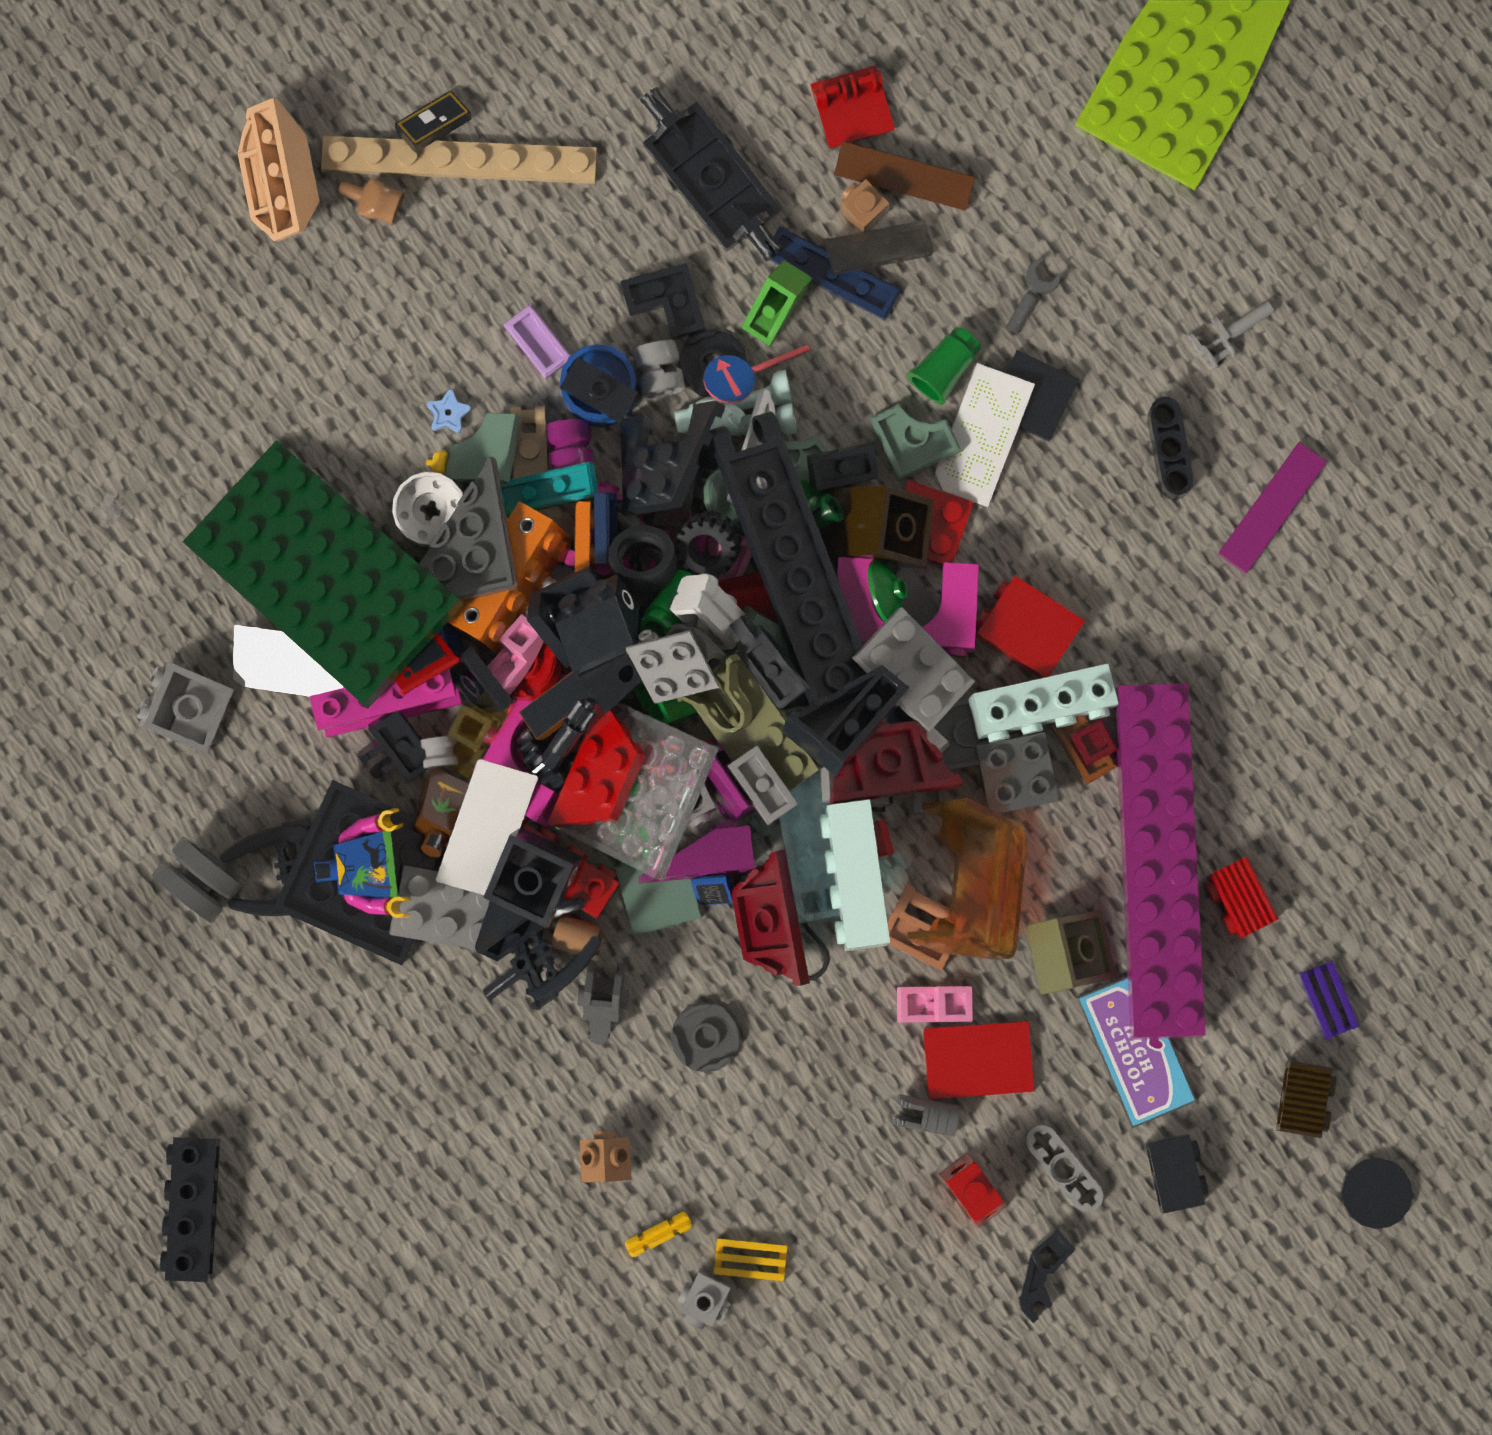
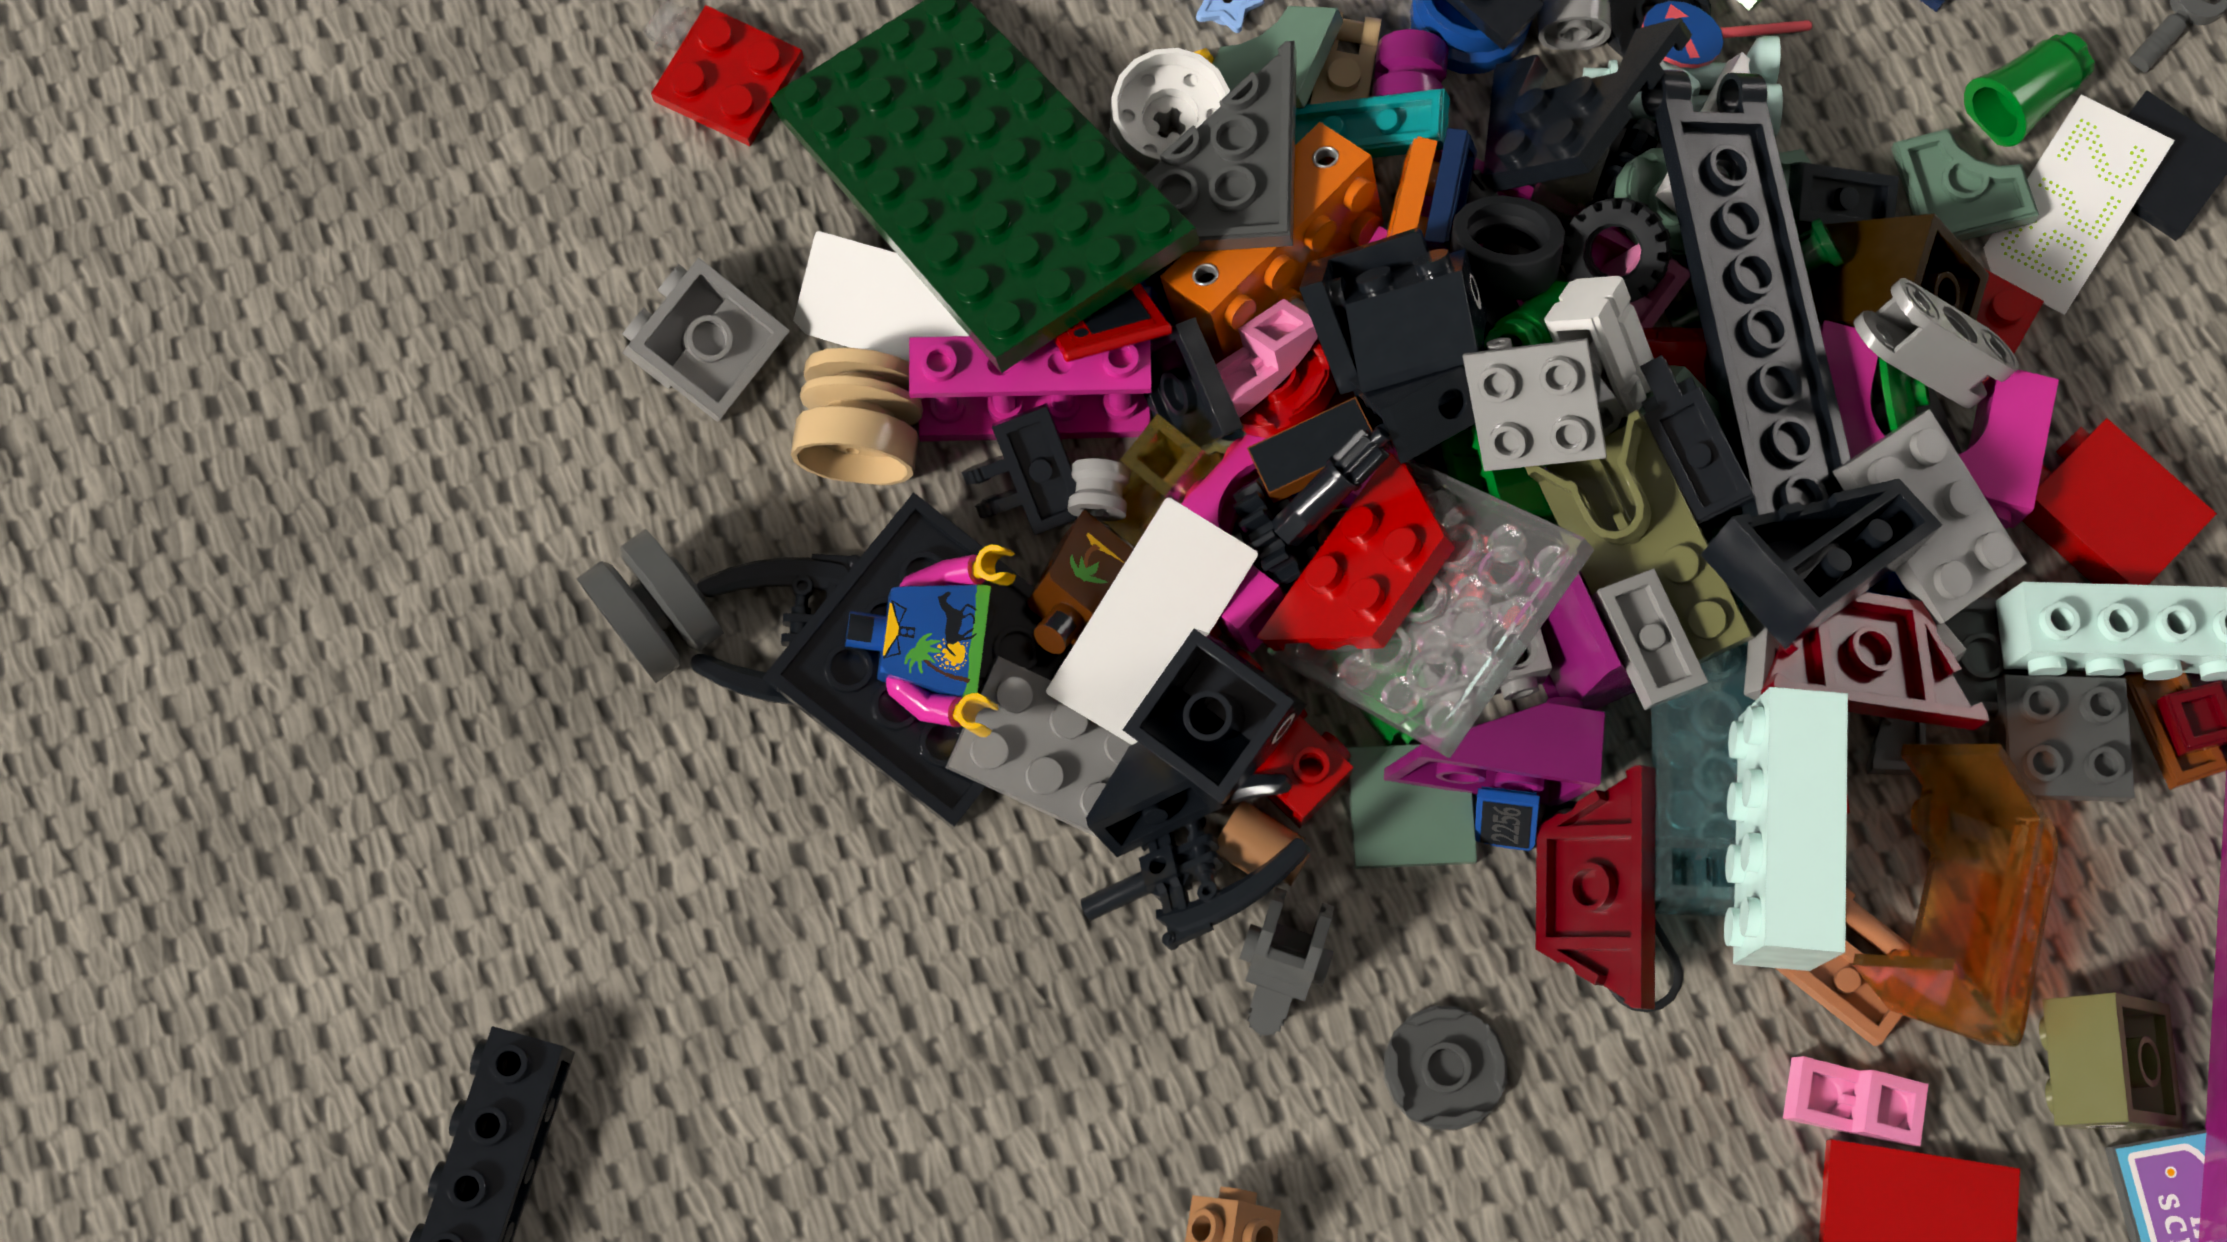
camera: 10 degrees right, 10 degrees down
(153, 530) = (727, 75): none -> red plate
(289, 739) = (857, 417): none -> tan wheel
(899, 567) = (1936, 344): none -> light grey piece

